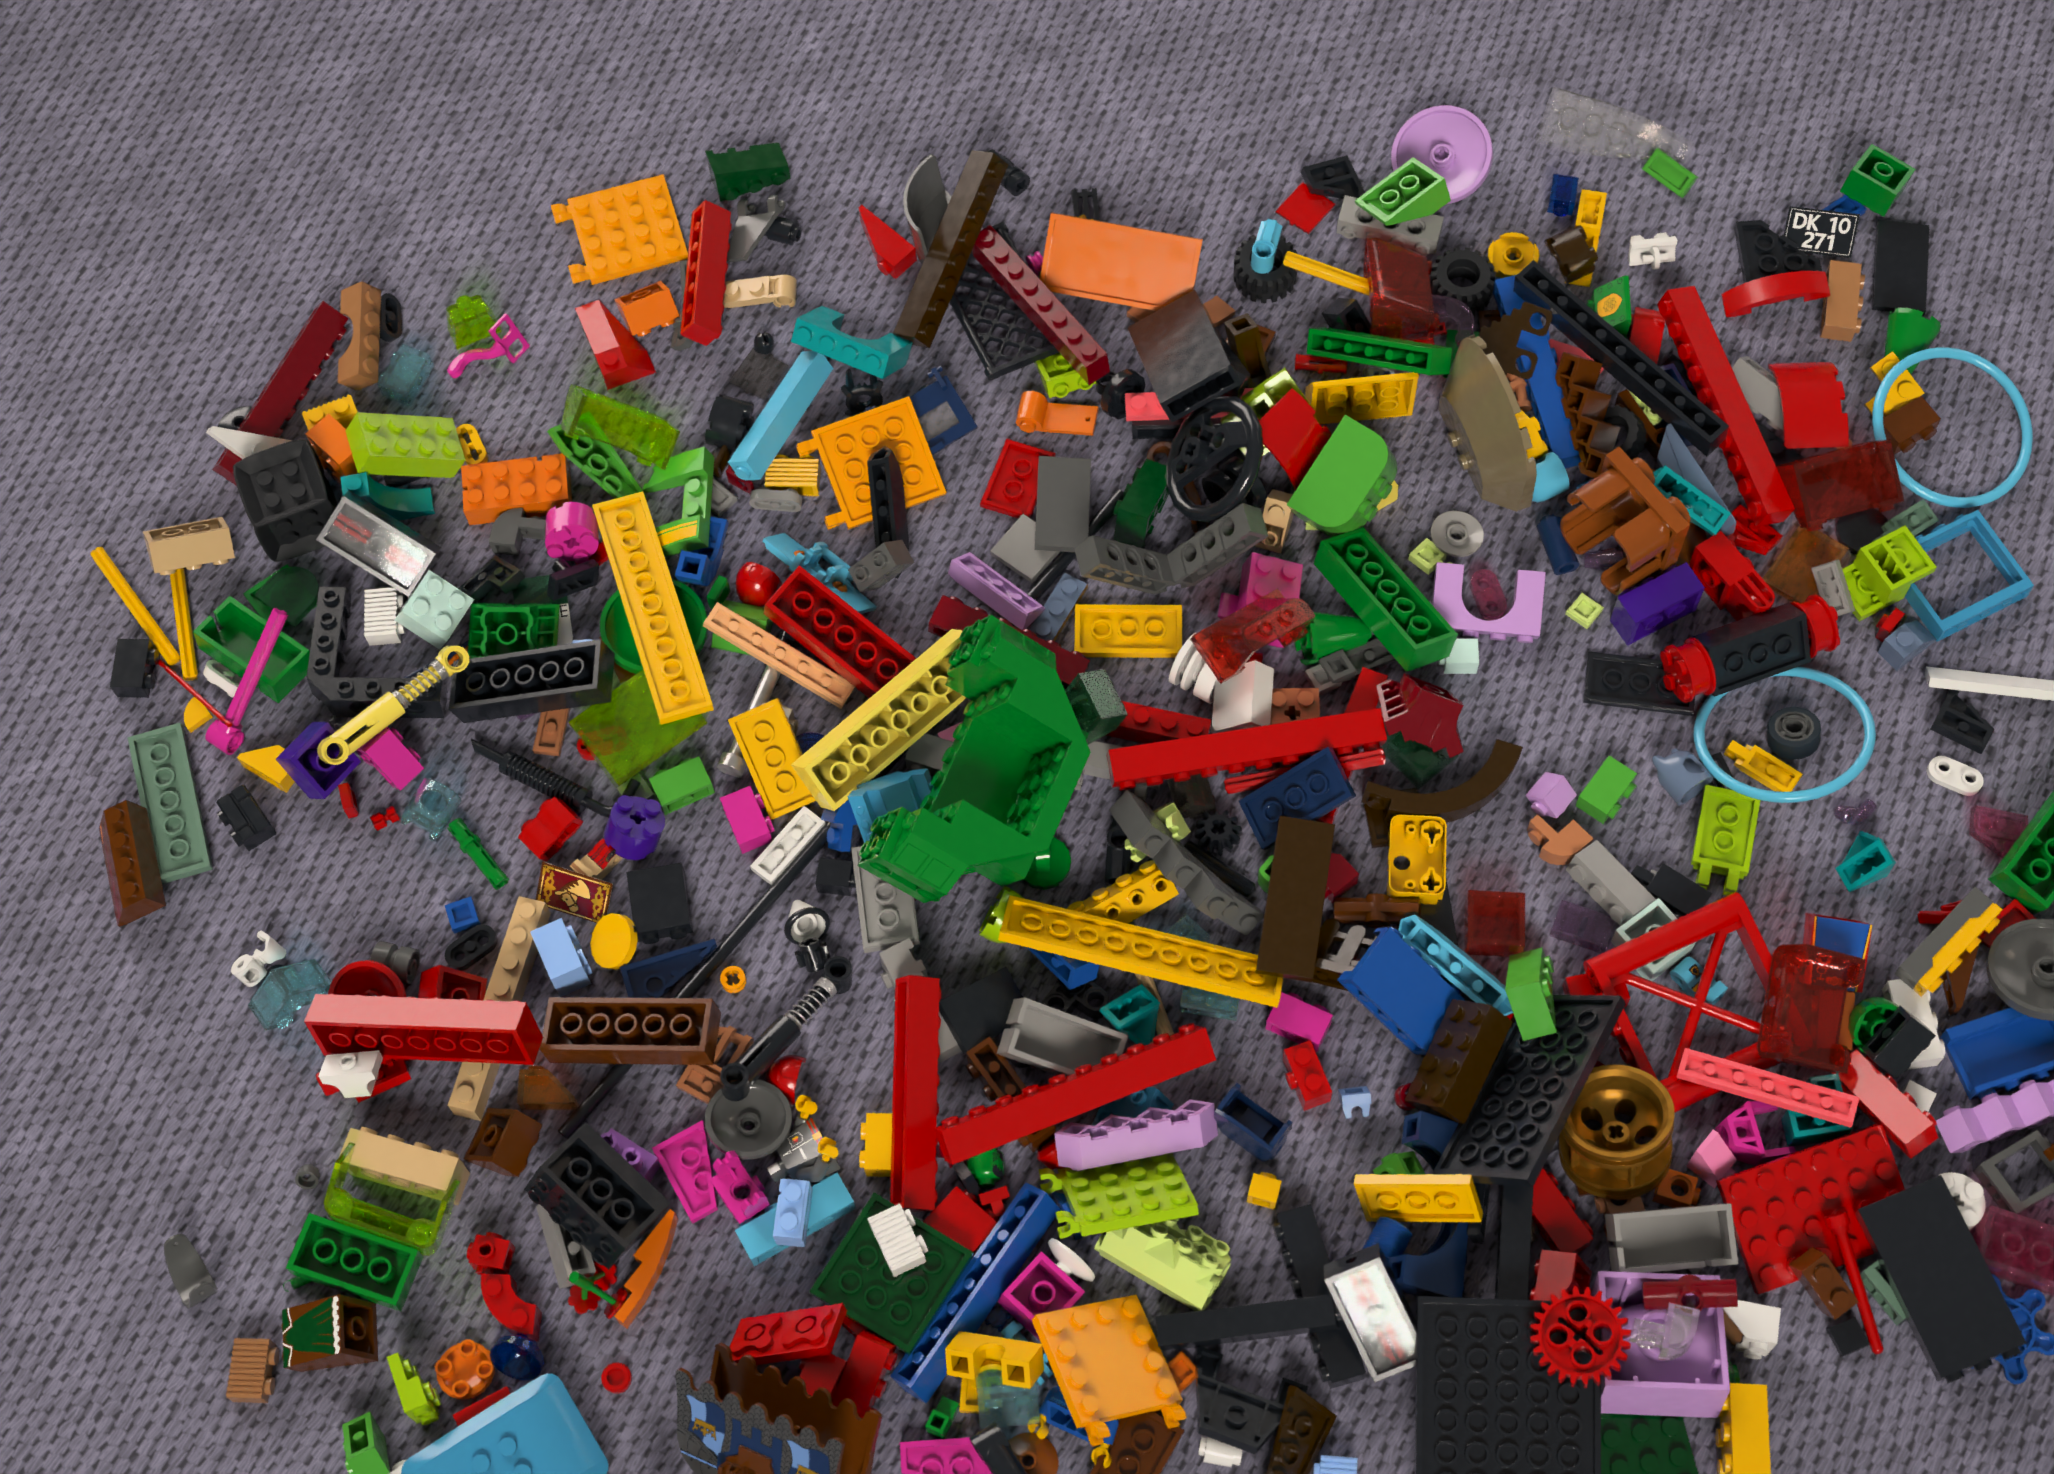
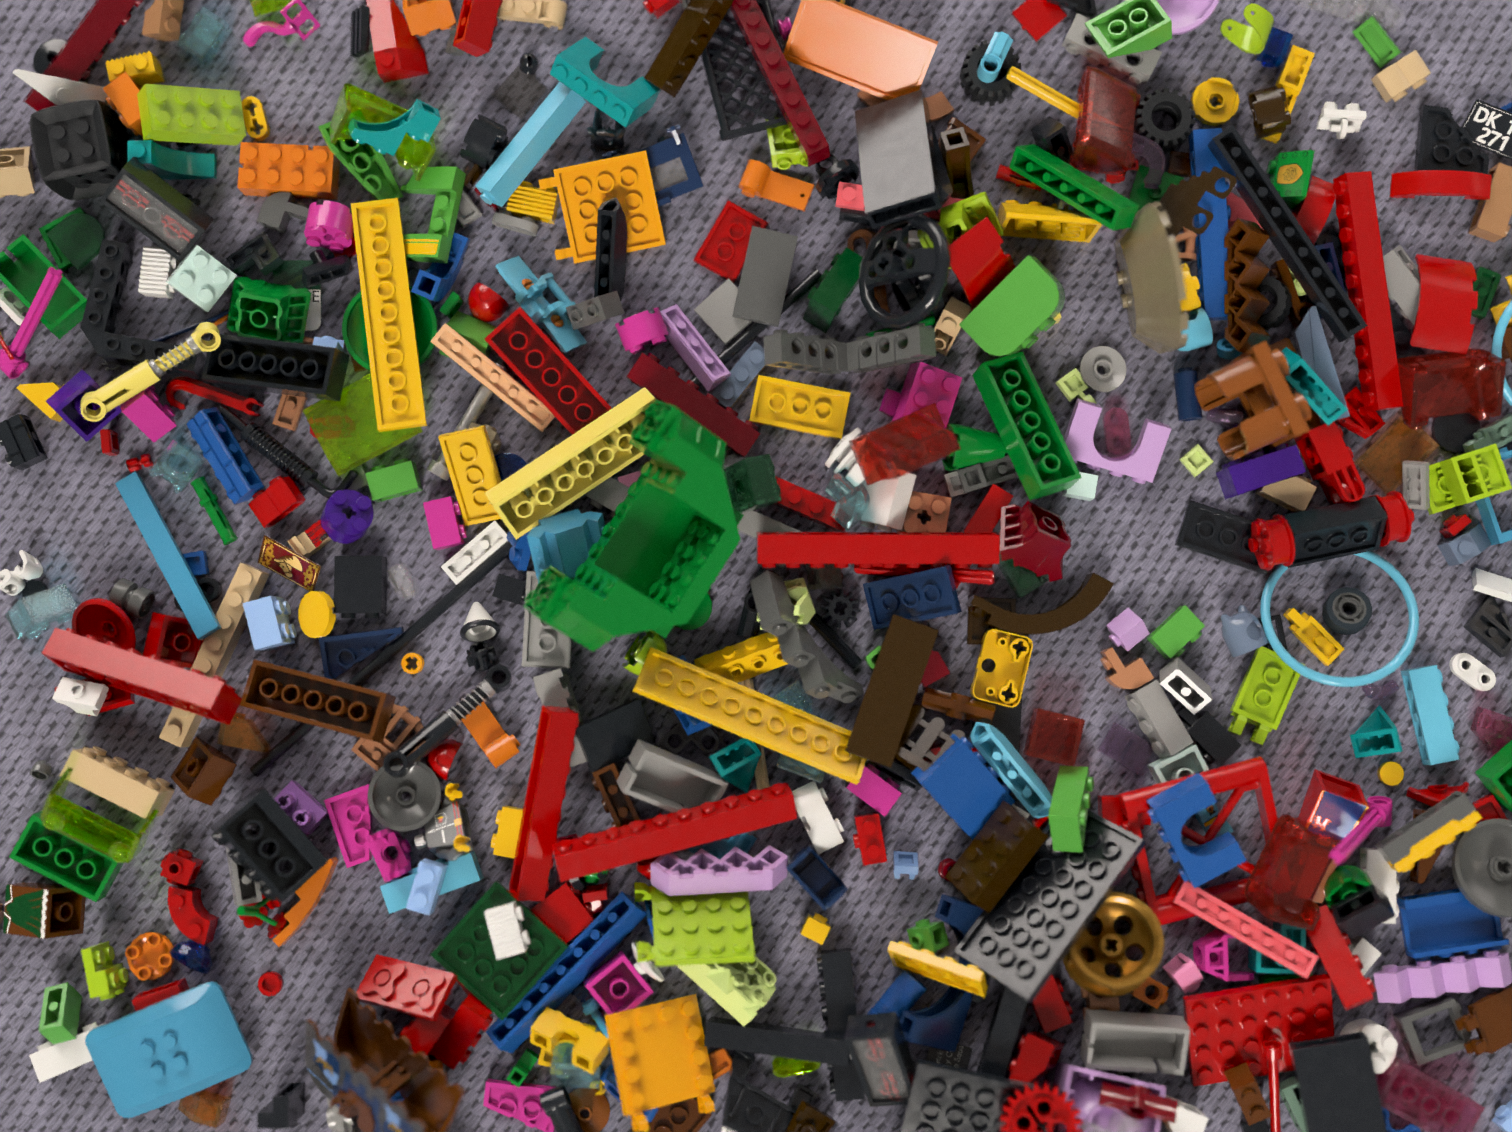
camera: 10 degrees right, 20 degrees up
(433, 906) = (168, 556): none -> dark azure tile
(459, 730) = (209, 392): none -> red piece
(483, 790) = (225, 455): none -> blue brick
(575, 342) = (359, 31): none -> black tile
(656, 409) = (386, 137): none -> teal arch
(708, 890) = (403, 581): none -> clear brick
(837, 1043) = (490, 736): none -> orange door
(937, 577) = (642, 330): none -> dark pink brick
(1203, 705) = (850, 500): none -> clear light blue brick
(1241, 1062) = (816, 817): none -> white brick
(1273, 1354) = (789, 1067): none -> clear neon green plate
(1330, 997) = (901, 773): none -> black tile
(1532, 193) = (1250, 38): none -> lime piece
(1631, 840) = (1185, 685): none -> light grey brick
(1644, 965) = (1171, 811): none -> blue arch
(1692, 621) = (1289, 493): none -> tan slope
(1704, 200) = (1401, 76): none -> tan brick
(1853, 383) = (1486, 286): none -> dark green plate
(1886, 942) = (1378, 815): none -> dark pink piece
(1893, 900) = (1390, 773): none -> yellow tile
(1919, 827) = (1430, 715): none -> medium azure brick

